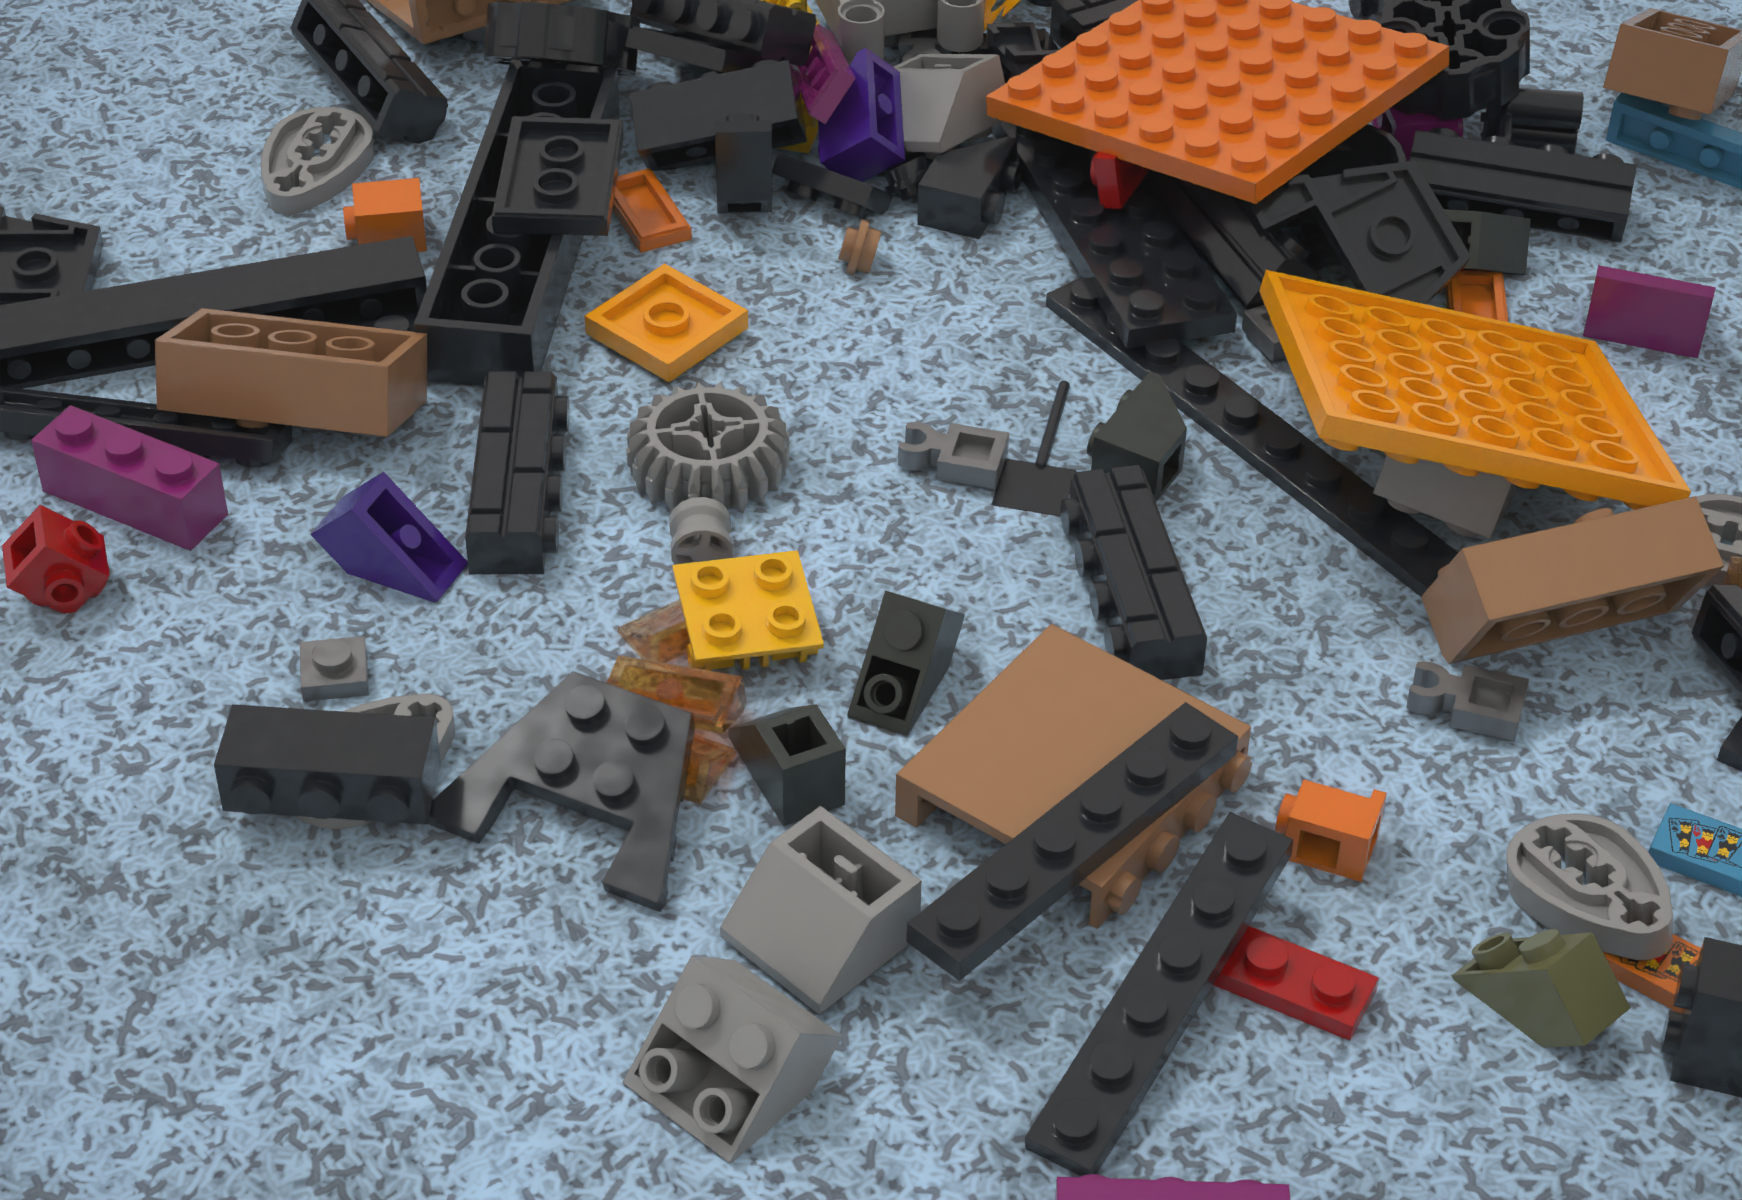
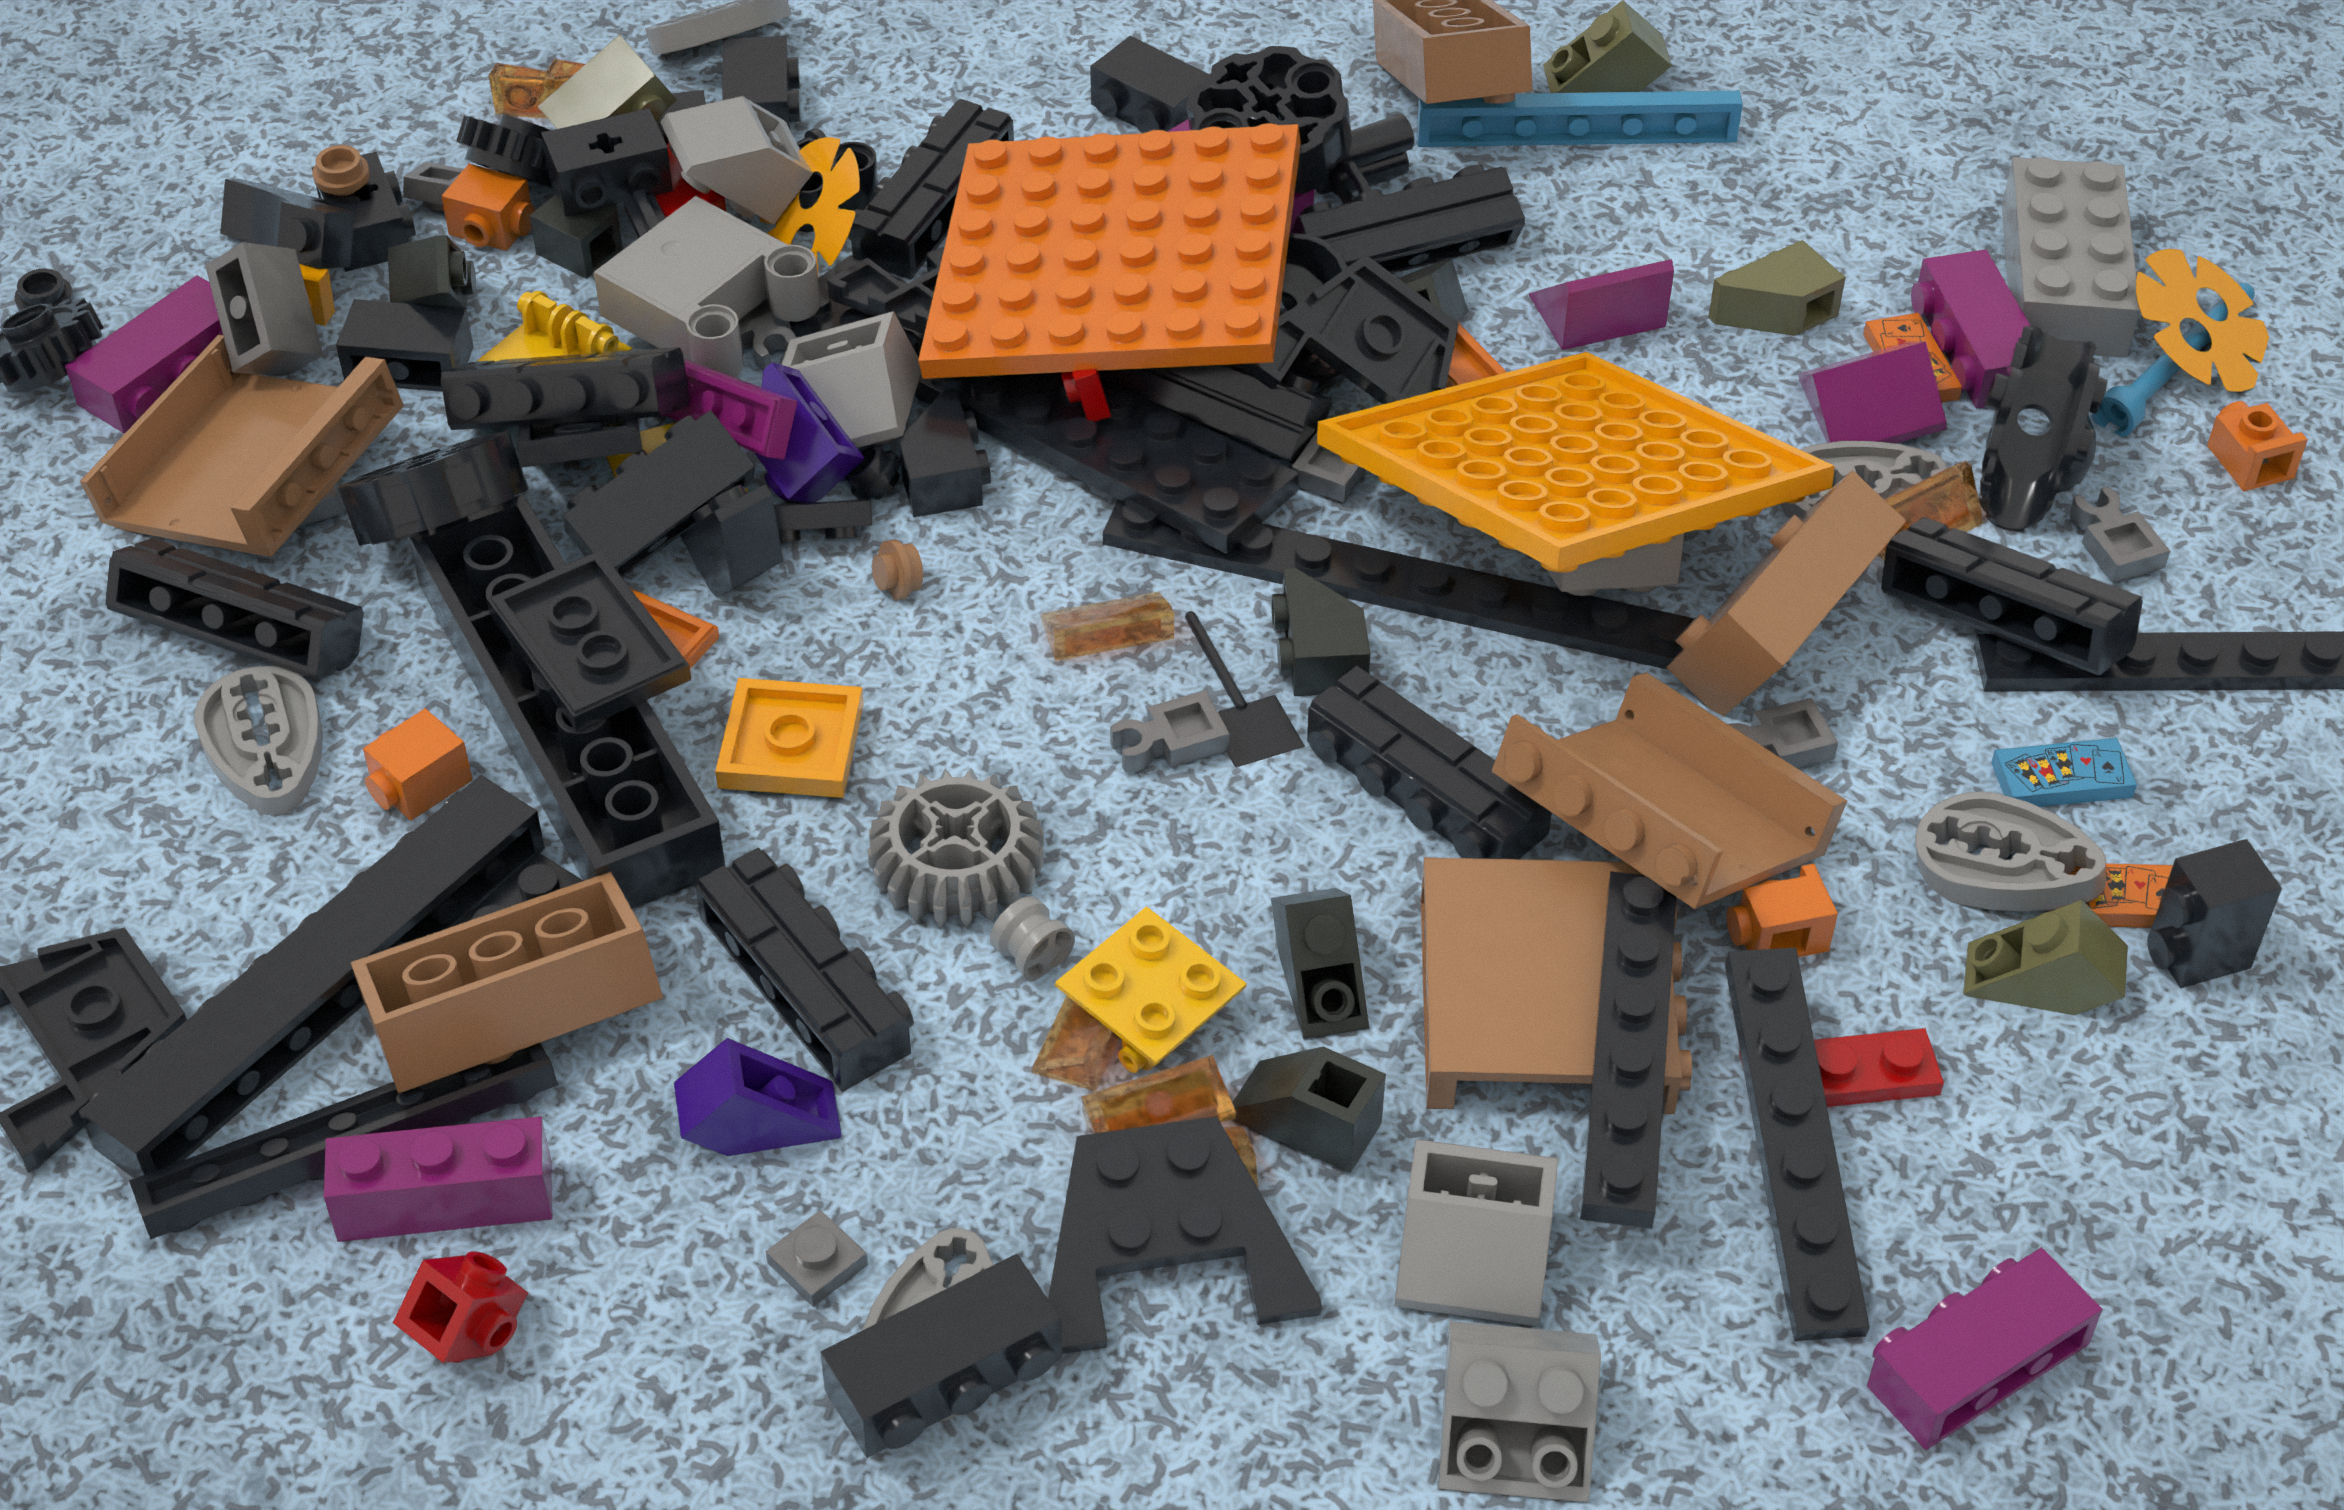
camera: 35 degrees left, 5 degrees up
(987, 361) = (1108, 625): none -> clear orange slope
(1312, 688) = (1675, 794): none -> medium nougat panel

